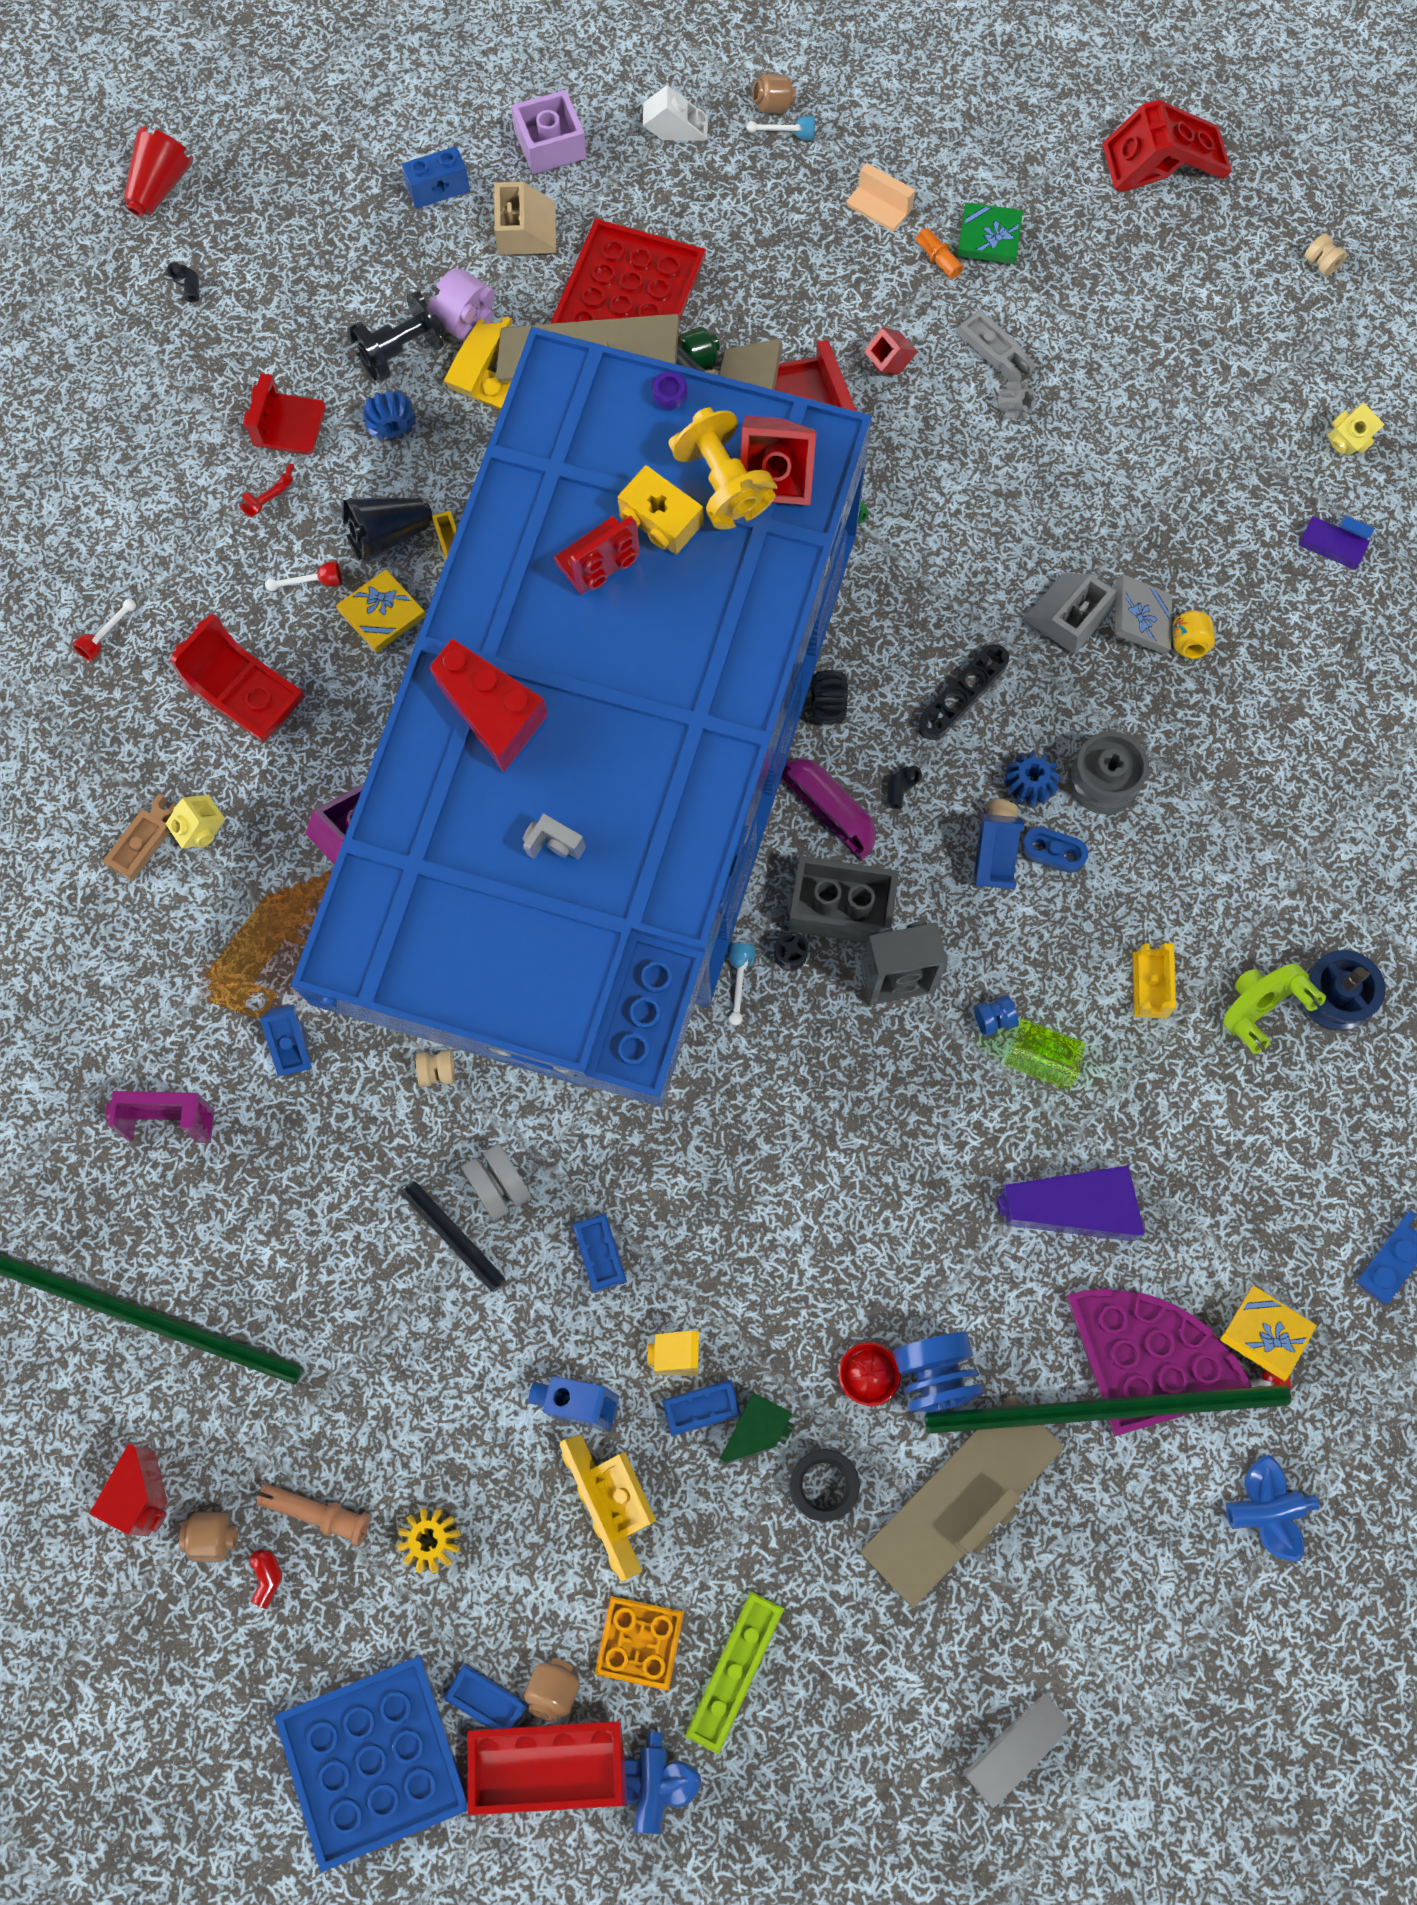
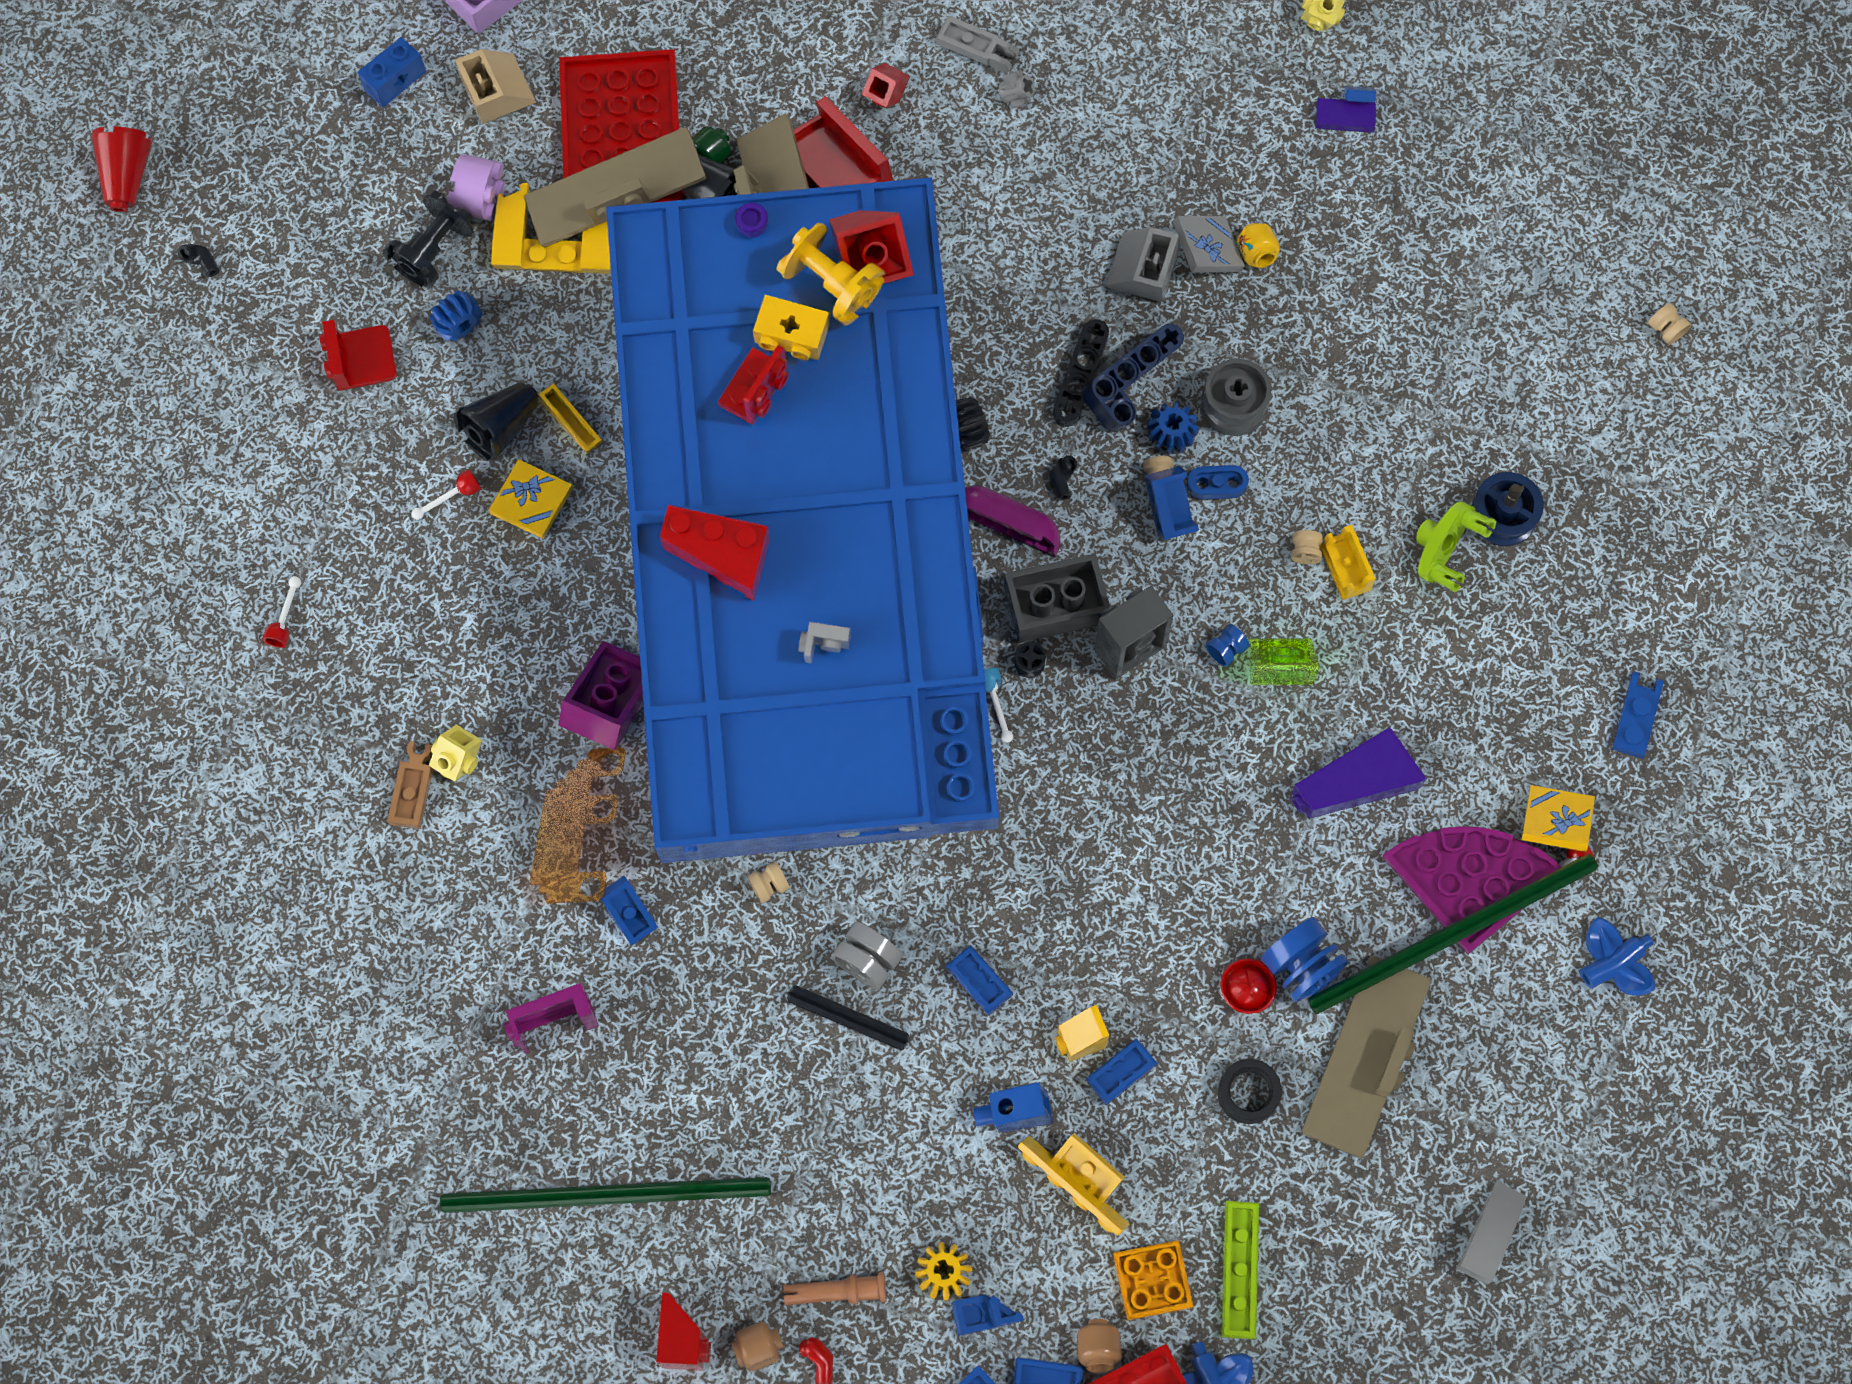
camera: 20 degrees left, 0 degrees up
(234, 680) = (431, 614): red bracket -> none
(254, 505) = (366, 446): red piece -> none
(450, 1602) = (982, 1314): none -> blue slope
(758, 1430) = (1176, 1069): dark green slope -> none
(1017, 707) = (1134, 368): none -> dark blue beam
(1119, 948) = (1307, 547): none -> tan wheel

